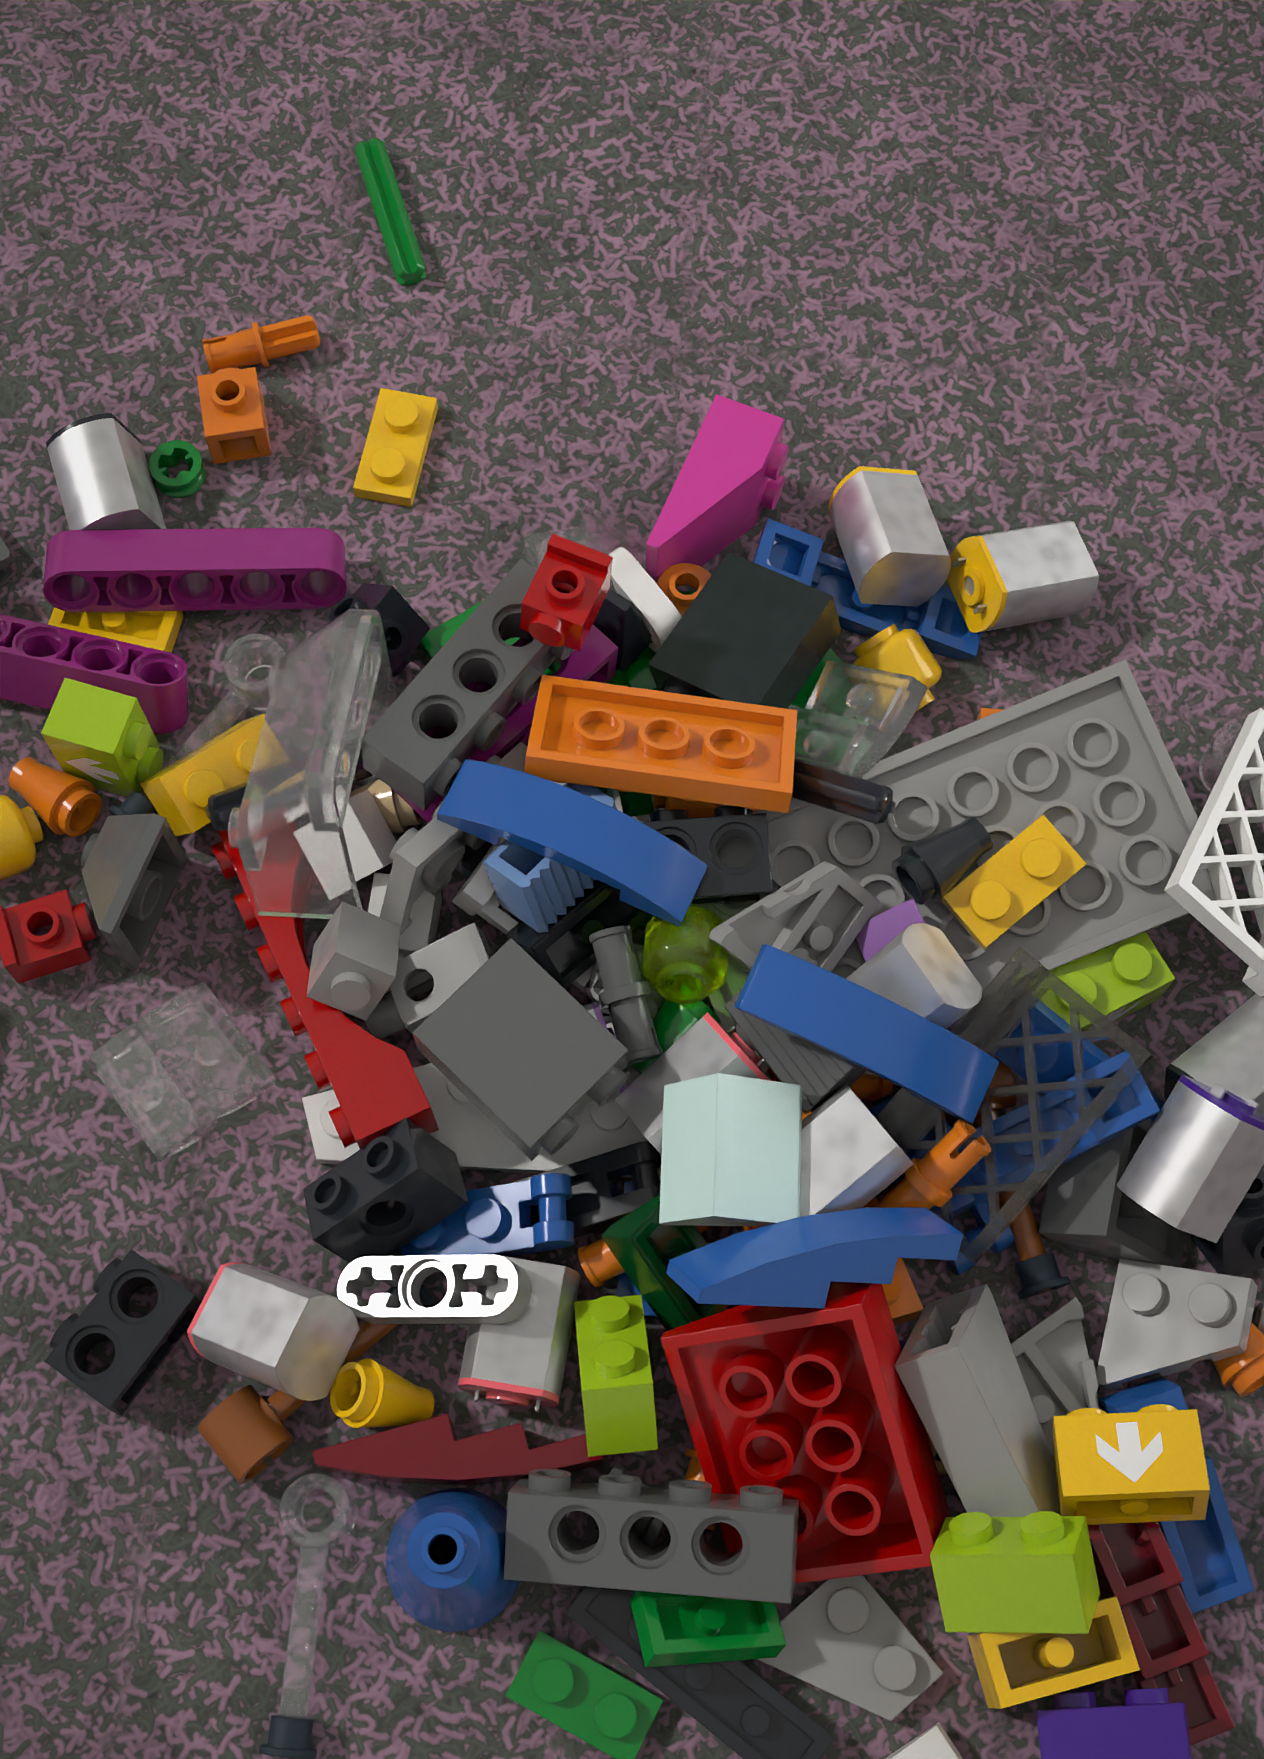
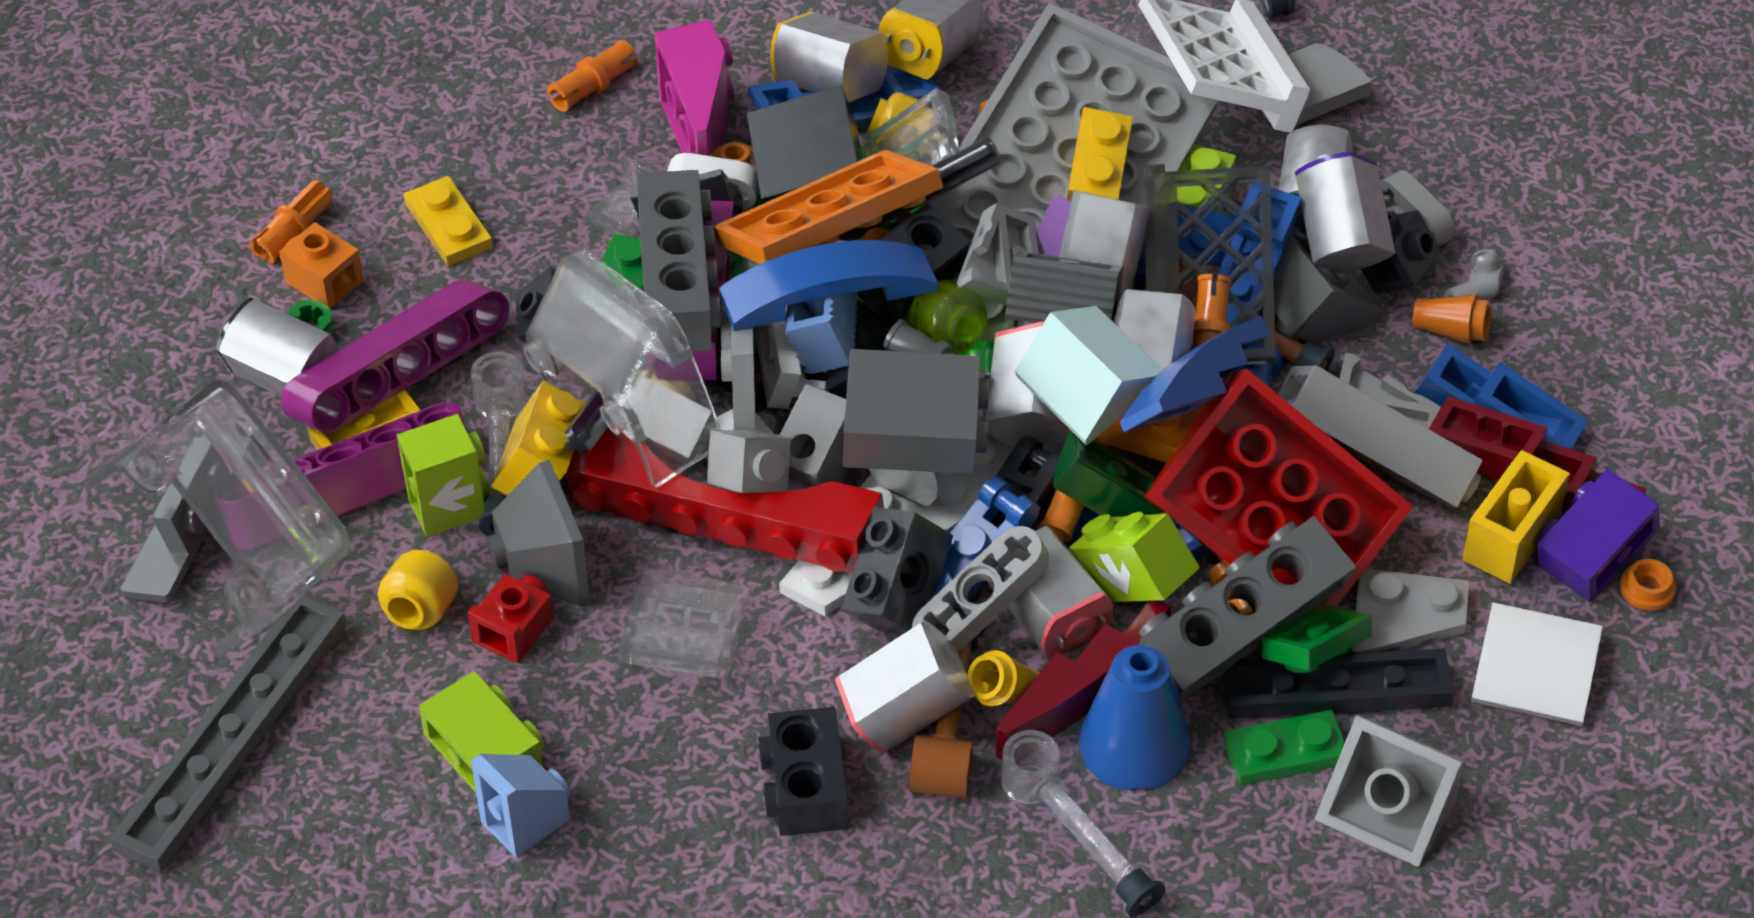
camera: 40 degrees left, 20 degrees down
(60, 799) = (441, 535): orange cone -> none
(390, 212) = (298, 100): green axle -> none
(566, 593) = (692, 160): red brick -> none
(667, 382) = (592, 75): none -> orange pin
(867, 1031) = (1104, 243): blue slope -> none
(940, 860) = (1047, 171): black cone -> none
(1015, 1574) = (1457, 473): lime brick -> none
(1130, 1465) = (1464, 384): yellow brick -> none
(1170, 1319) = (1409, 324): light grey wing -> none

